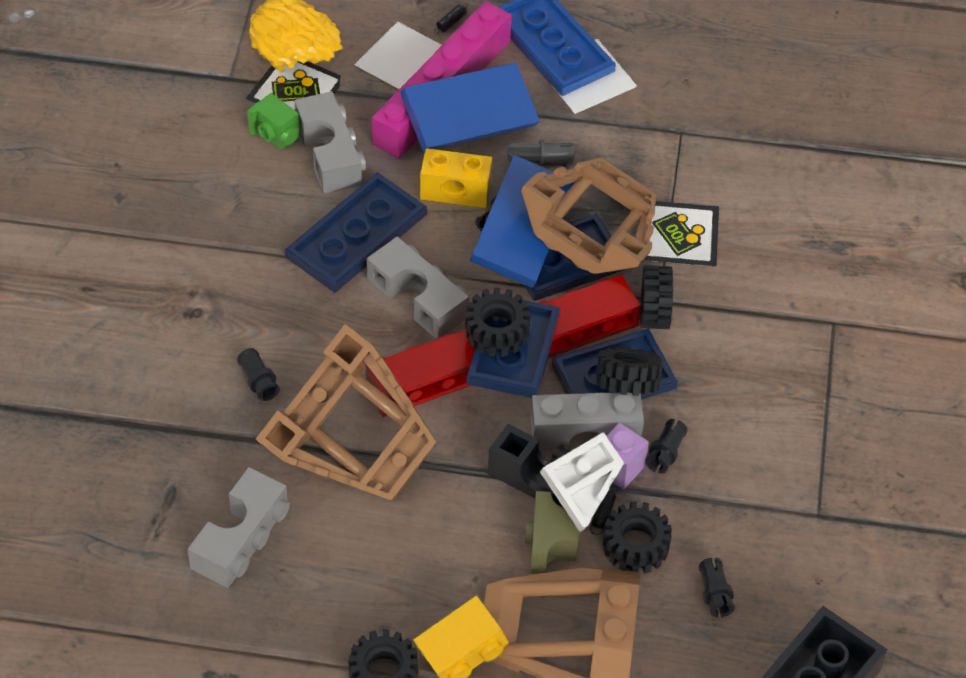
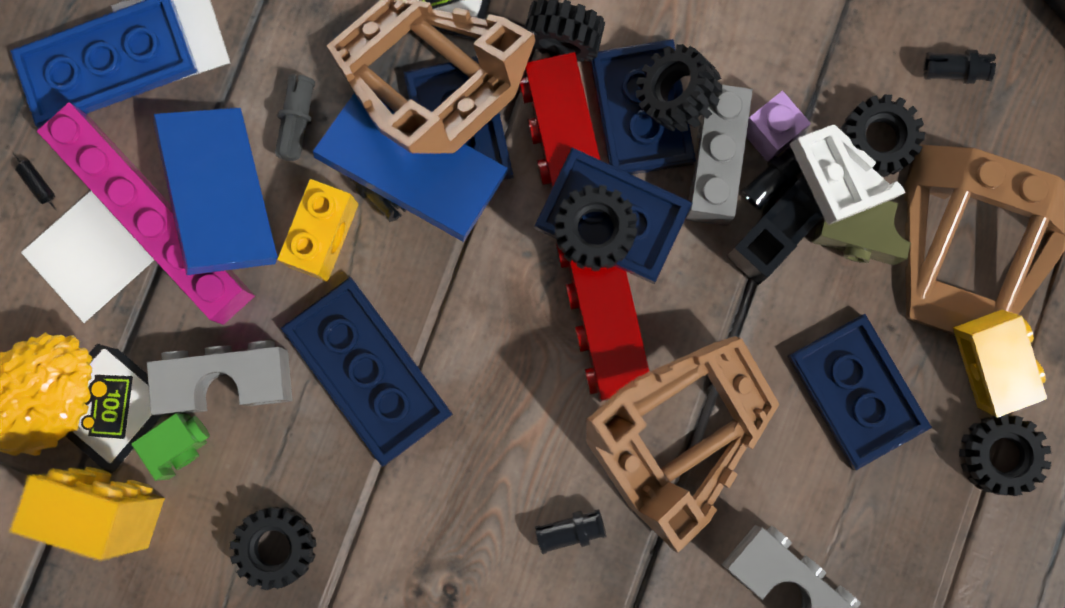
camera: 70 degrees left, 30 degrees up
(207, 180) = (247, 554): none -> black tyre
(217, 72) = (88, 512): none -> yellow brick
(401, 268) = (444, 326): light grey arch -> none
(414, 559) = (859, 392): none -> dark blue tile
(664, 450) = (762, 73): black pin -> none

